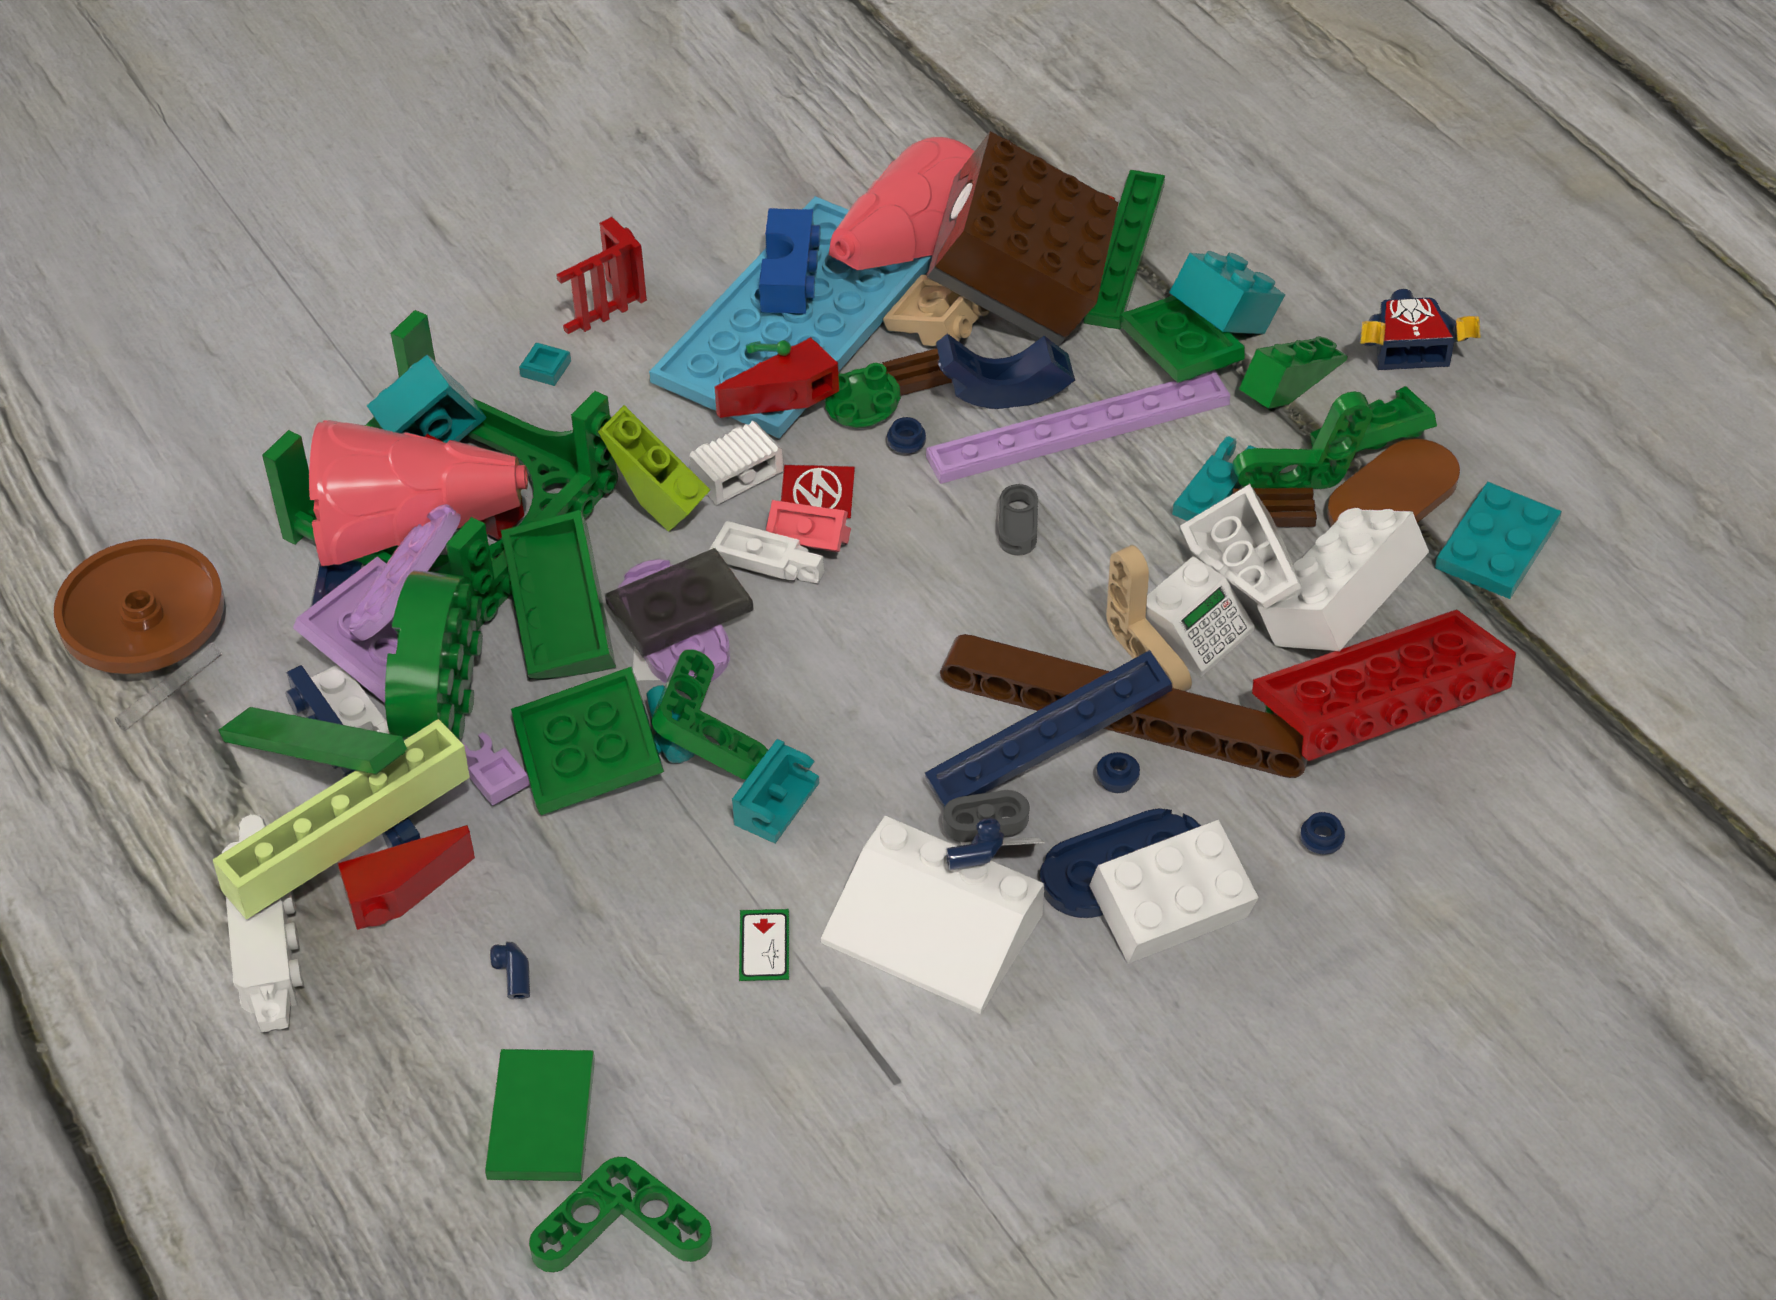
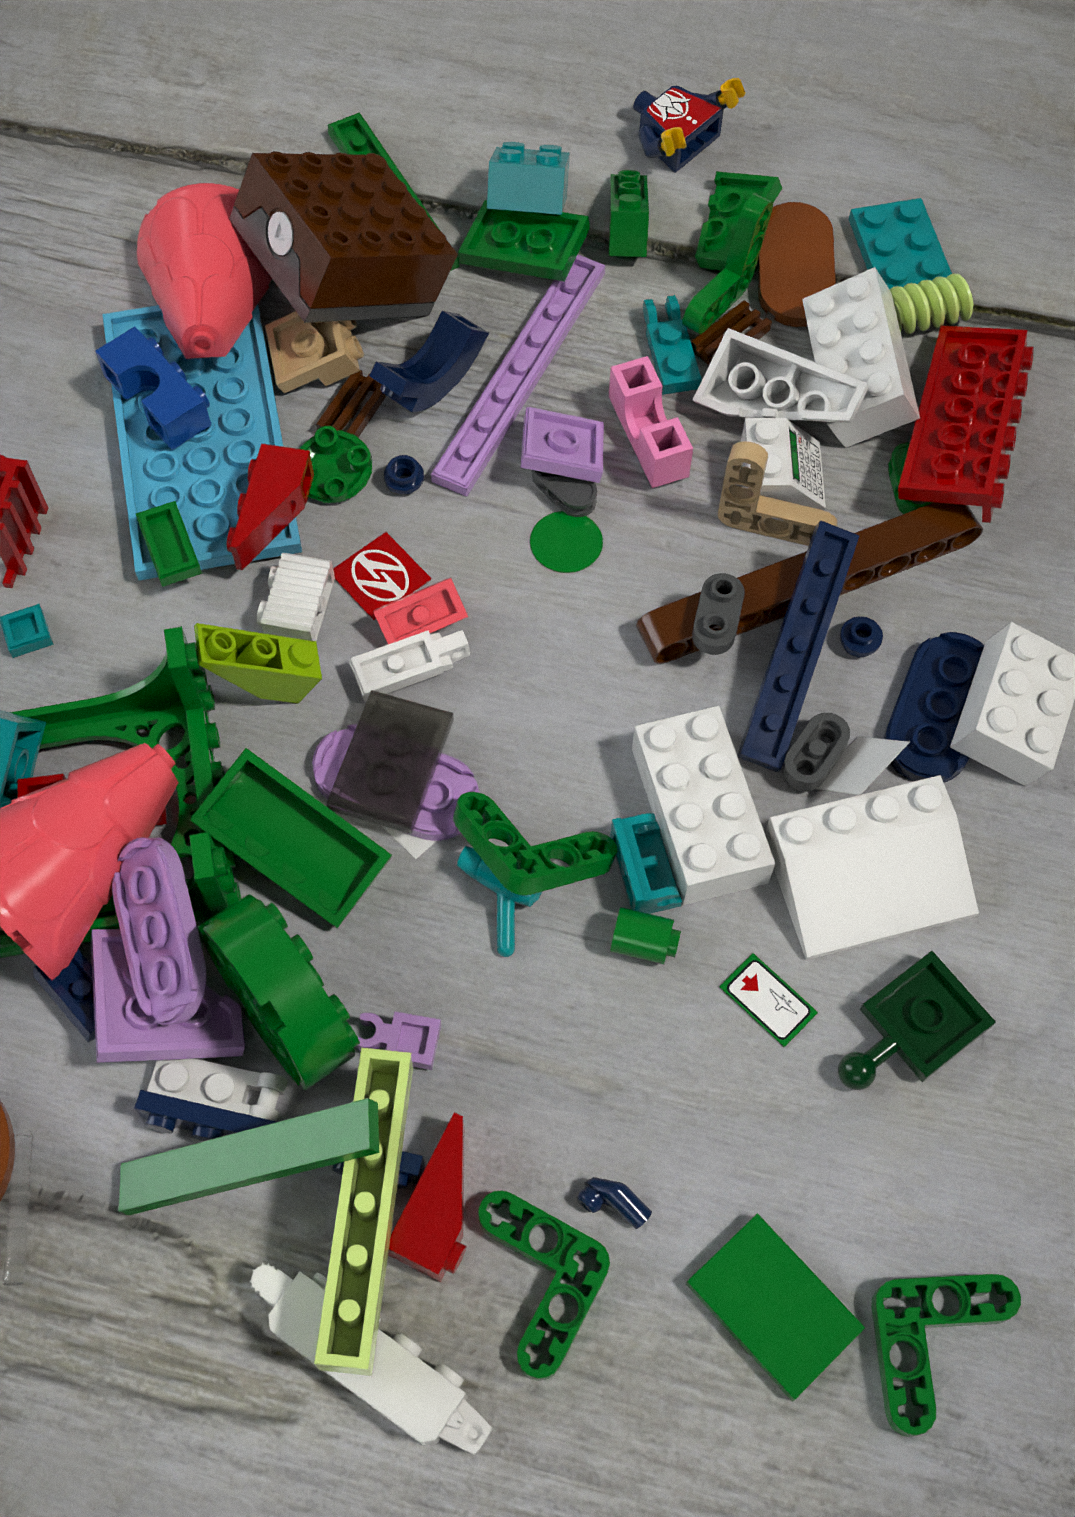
camera: 45 degrees left, 15 degrees up
(438, 978) = (559, 1261): none -> green beam
(586, 741) = (455, 947): green plate -> none
(688, 367) = (168, 543): none -> green tile
(719, 831) = (644, 936): none -> green brick
(782, 348) = (253, 470): green hinge -> none
(849, 1034) = (923, 1018): none -> dark green plate
(855, 781) = (702, 805): none -> white brick
(976, 561) = (566, 542): none -> green sticker
(980, 850) = (882, 787): dark blue arm -> none
(1016, 667) = (718, 610): none -> dark grey plate
(1041, 489) = (562, 444): none -> lavender tile
(1132, 503) = (657, 442): none -> bright pink arch
(1322, 824) = (1047, 564): dark blue plate -> none
(1459, 586) = (932, 301): none -> yellowish green piece

